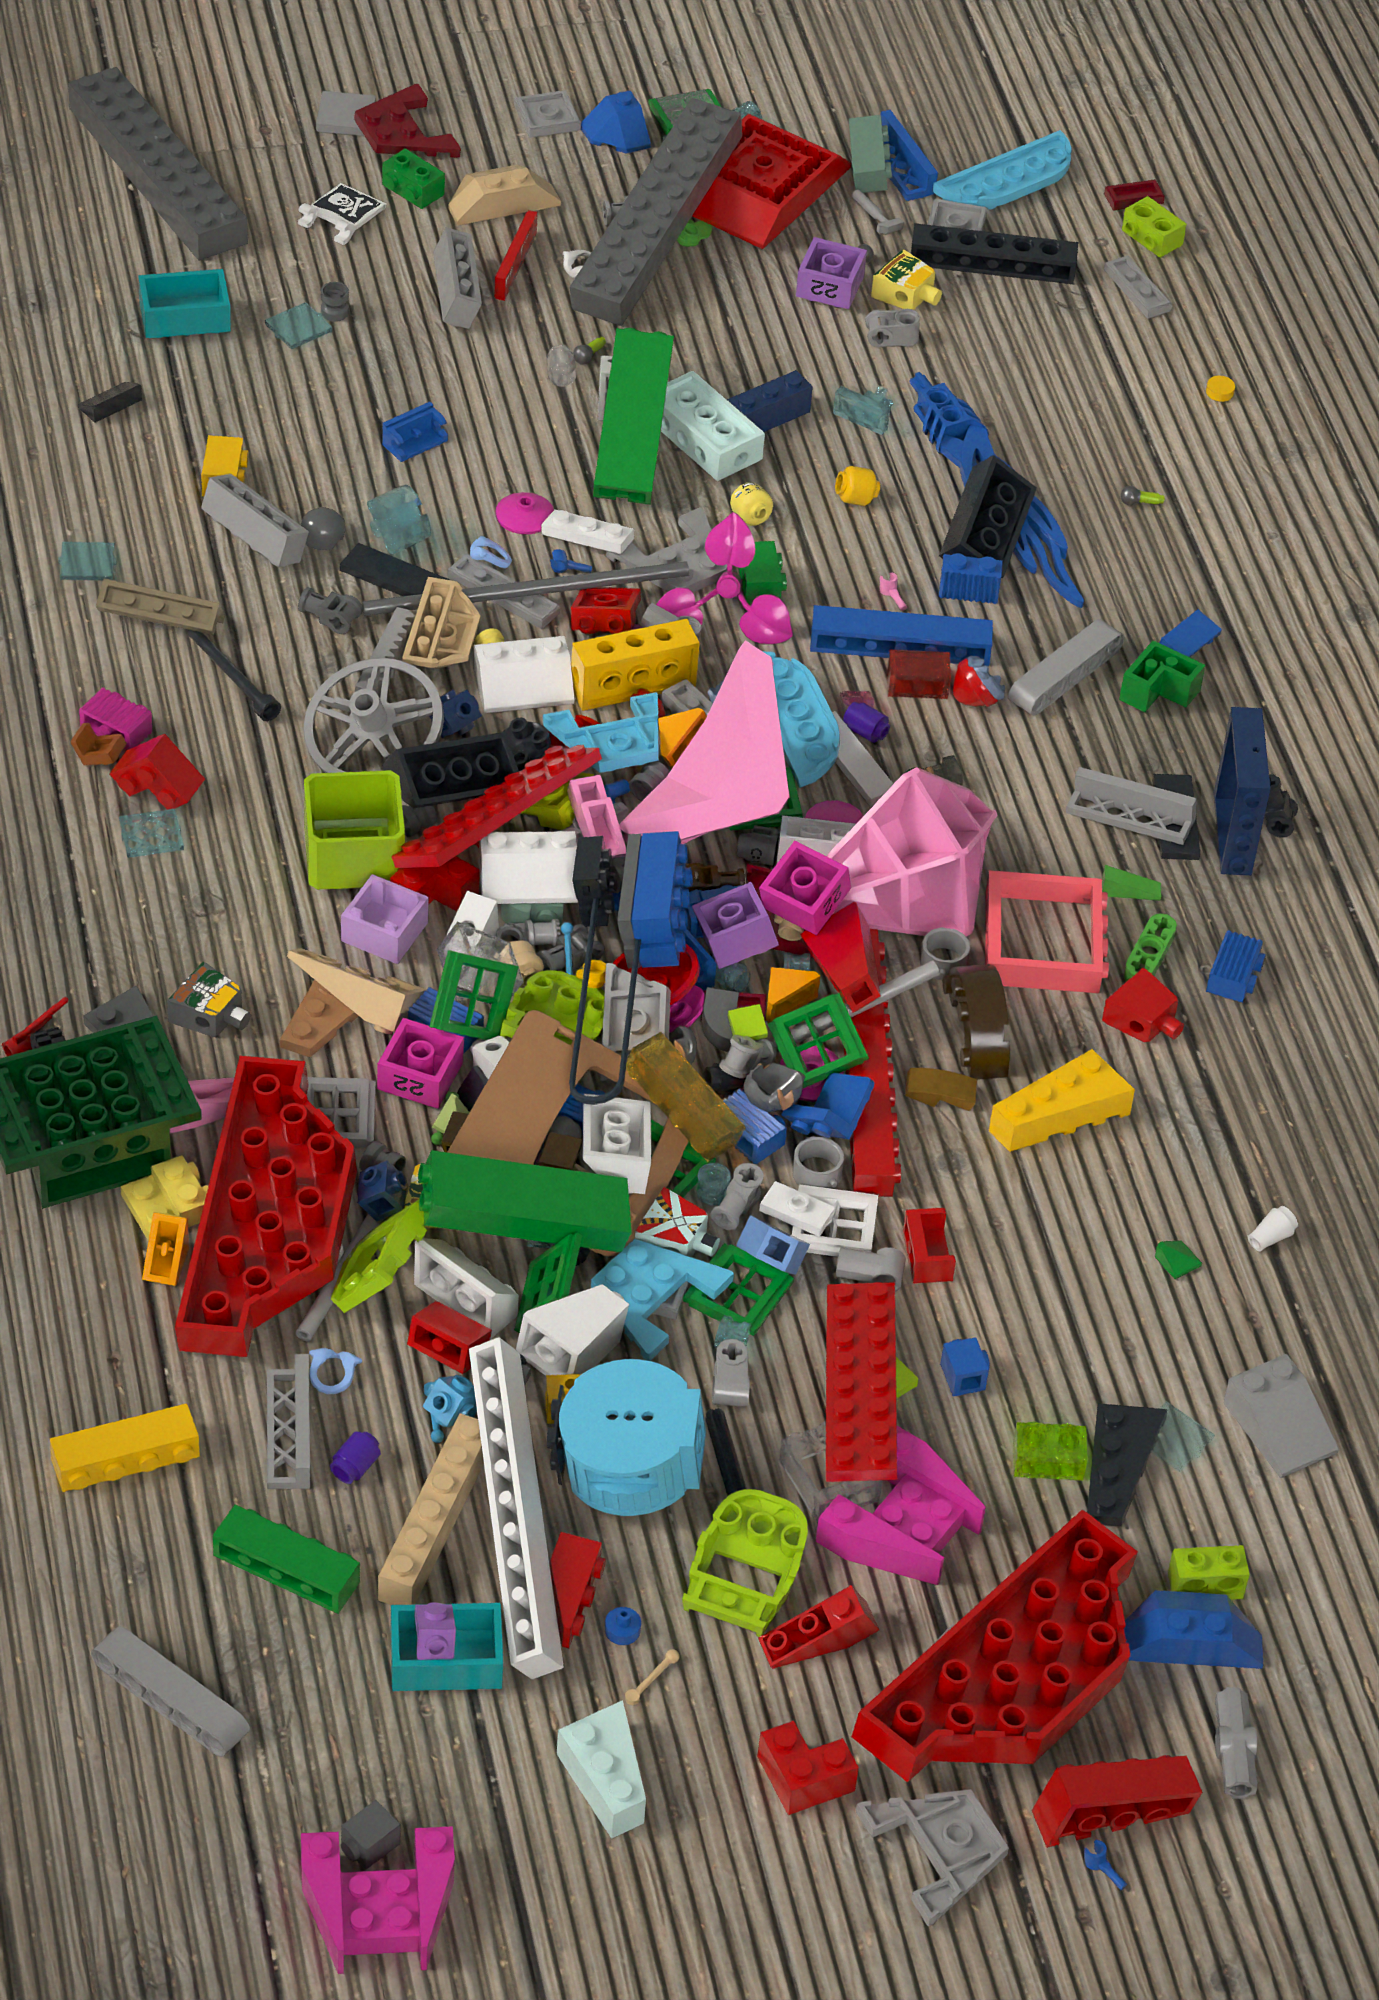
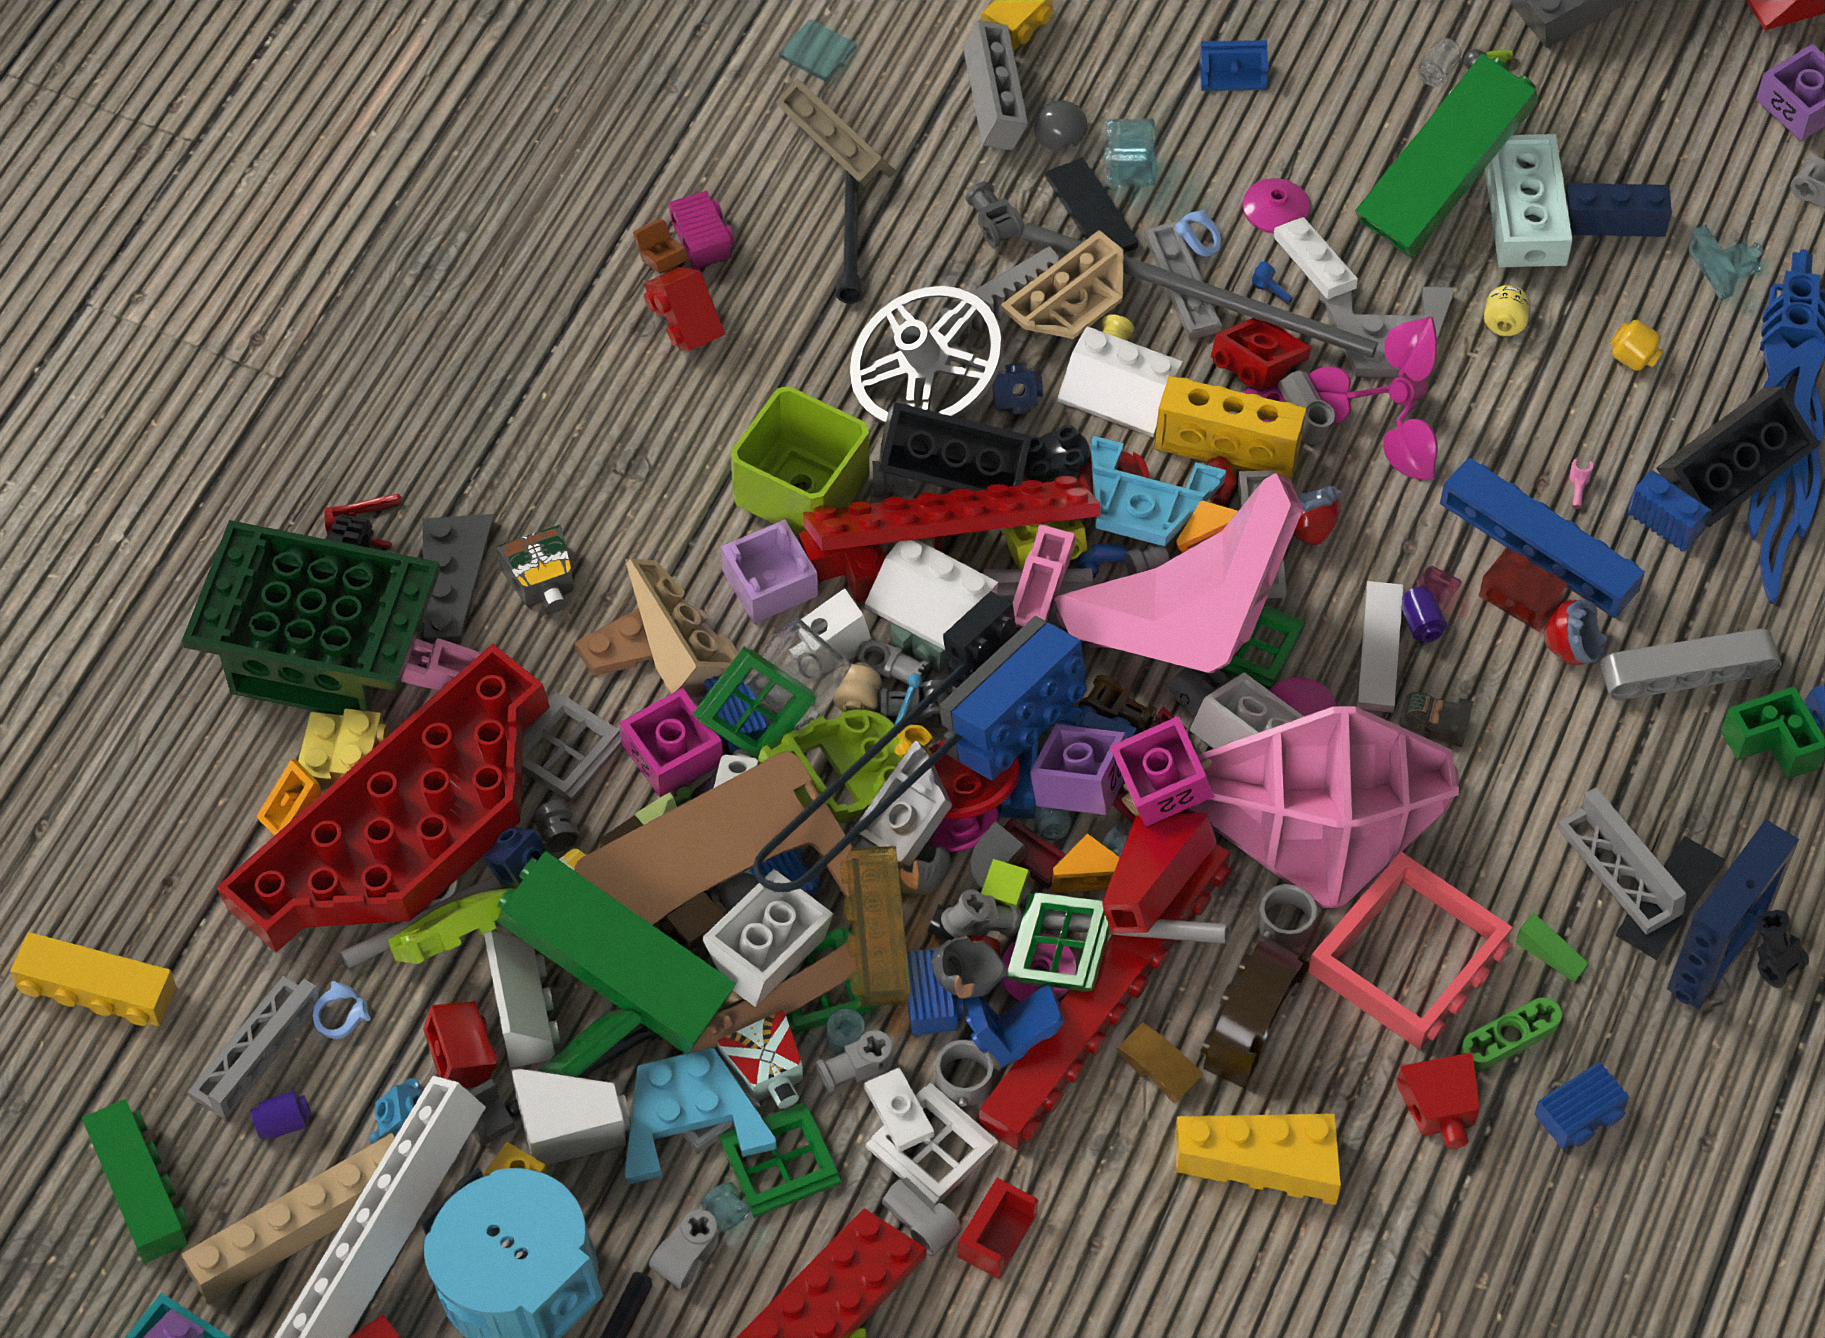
camera: 40 degrees right, 10 degrees up
(151, 849) = (648, 344): clear light blue window -> none
(763, 573) = (1449, 391): green brick -> none
(772, 1245) = (841, 1137): medium blue slope -> none
(806, 721) = (1356, 567): medium azure plate -> none

